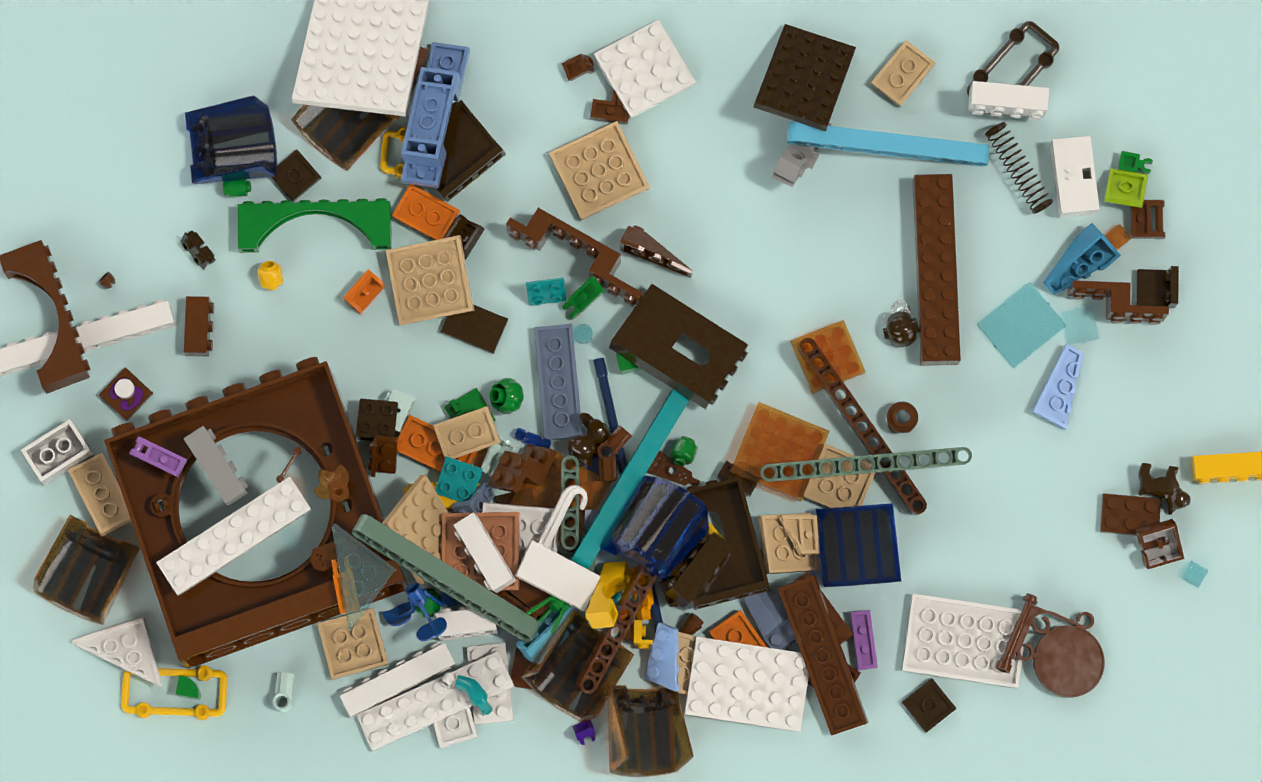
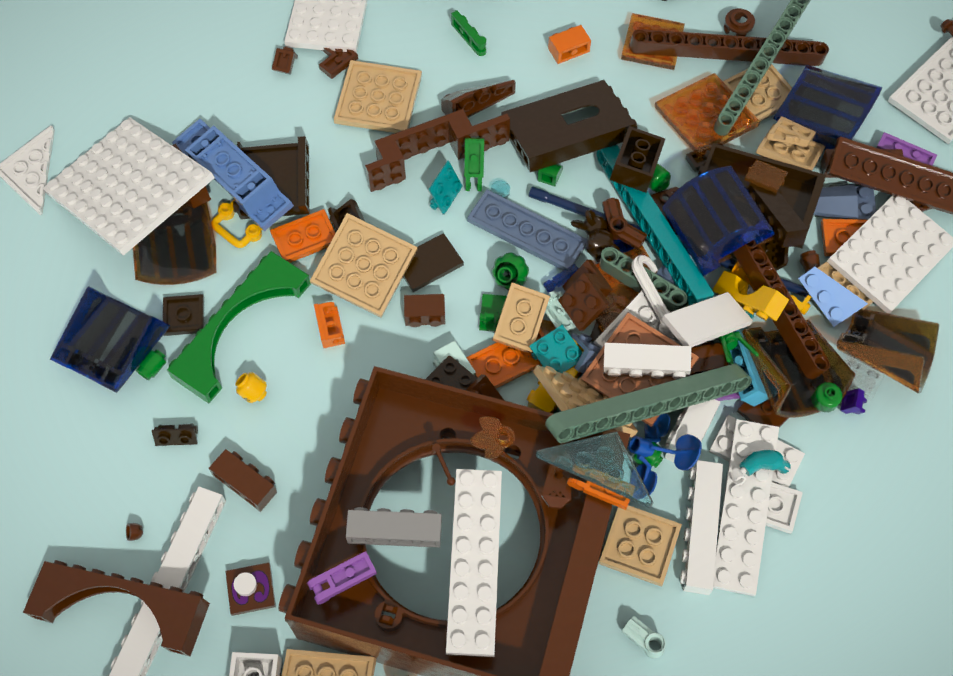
camera: 55 degrees left, 15 degrees down
(428, 354) = (424, 310): none -> reddish brown brick
(573, 713) = (827, 397): none -> green head
(675, 426) = (637, 159): none -> dark brown brick
(719, 197) = (468, 33): none -> green plate
(732, 539) = (766, 176): none -> clear orange piece
(770, 288) = (569, 44): none -> orange brick

